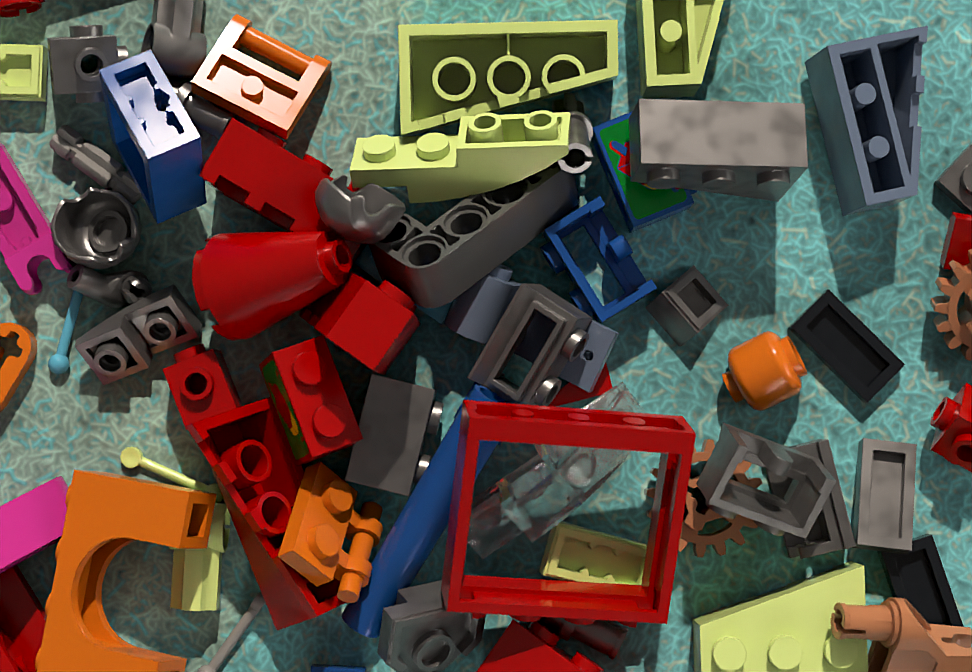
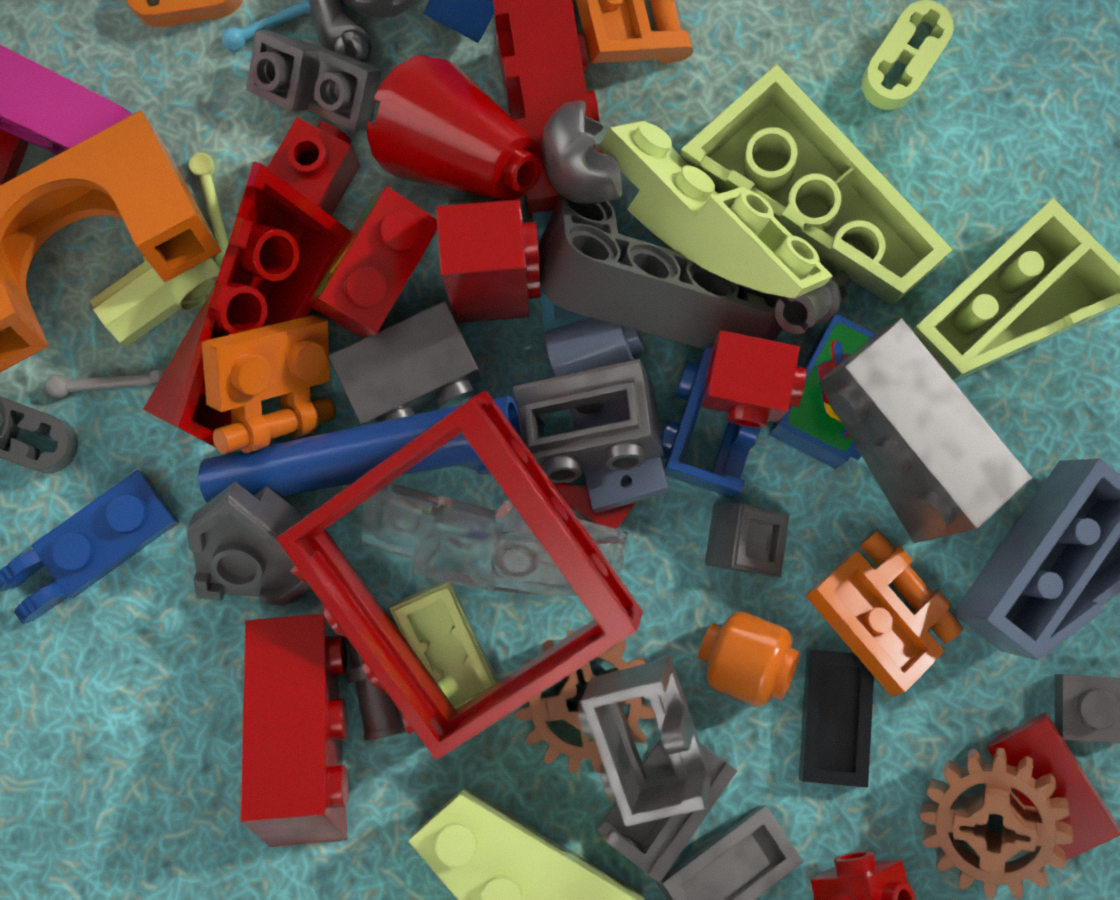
camera: 45 degrees right, 5 degrees down
(594, 221) = (752, 379): none -> red brick
(807, 271) = (876, 622): none -> orange plate

